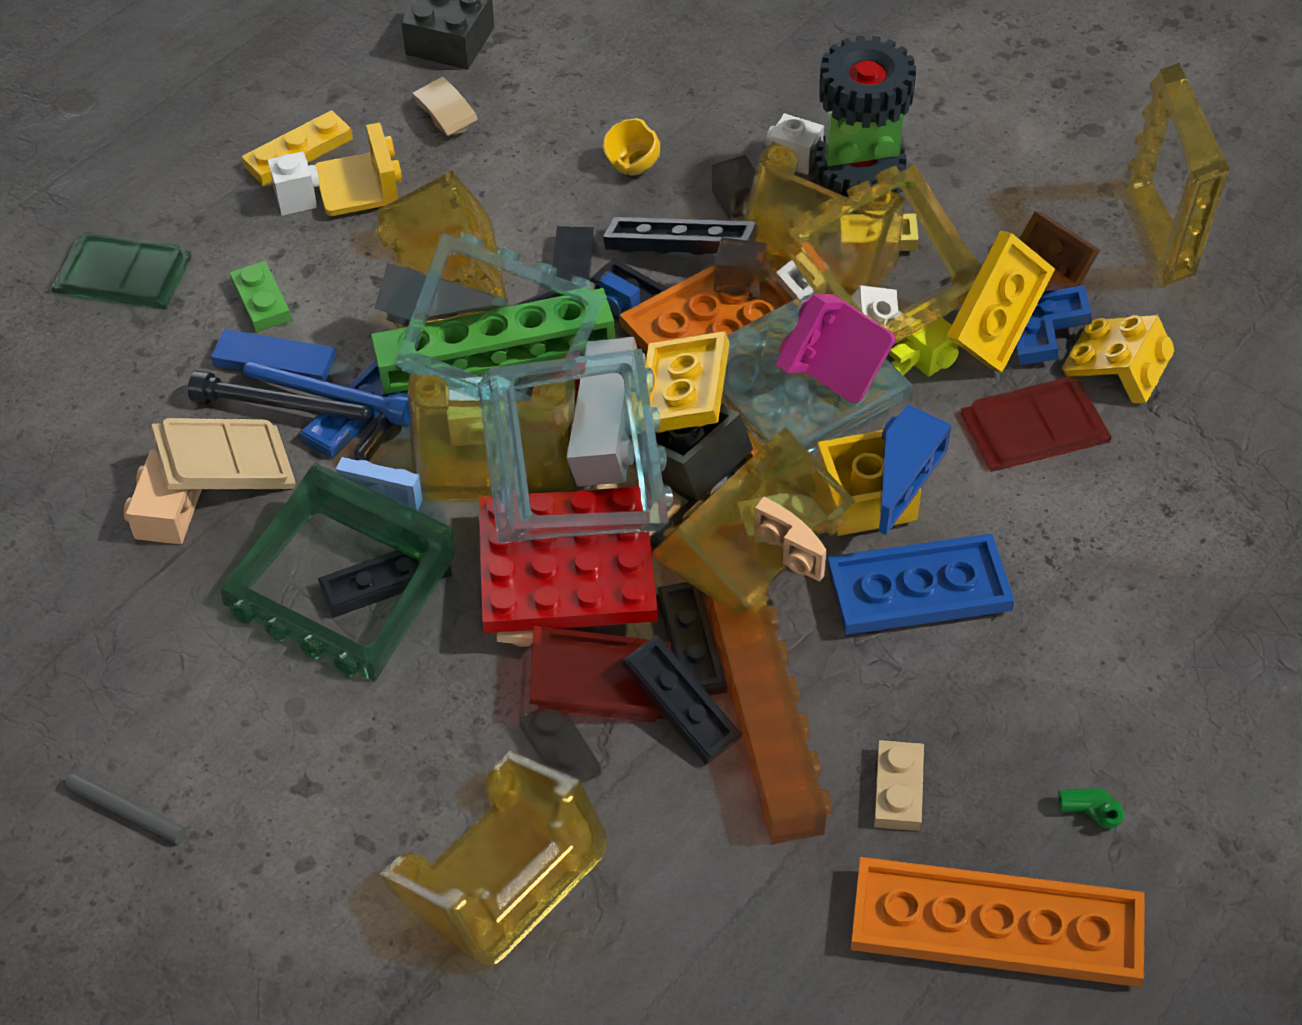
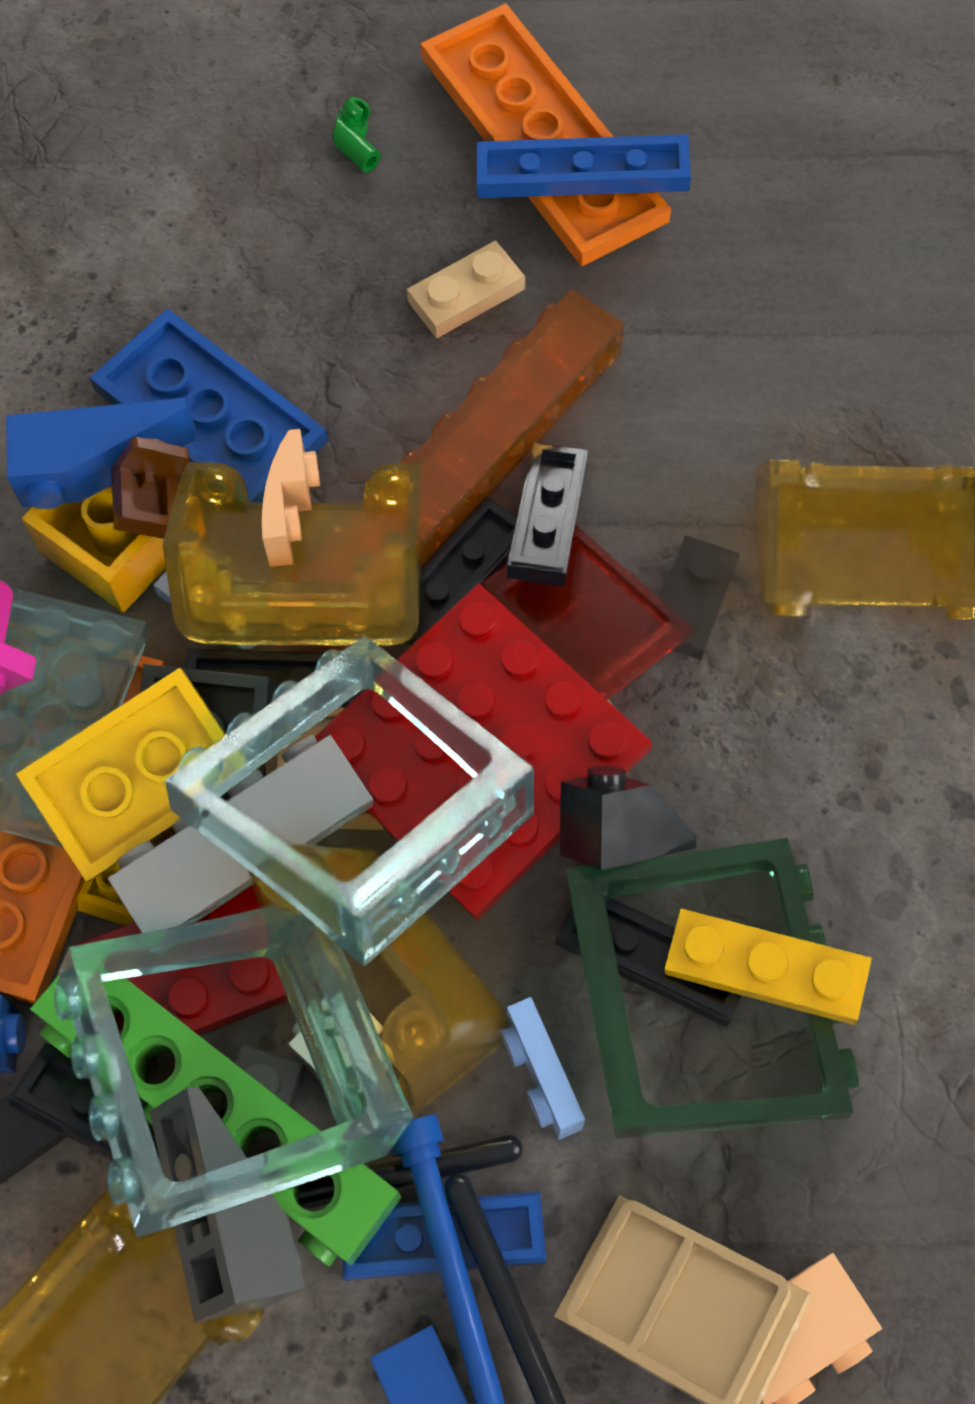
camera: 130 degrees left, 15 degrees up
(320, 599) = (768, 966): none -> yellow plate
(453, 581) = (617, 821): none -> black slope
(852, 470) = (146, 485): none -> reddish brown bracket
(926, 898) = (583, 166): none -> blue plate

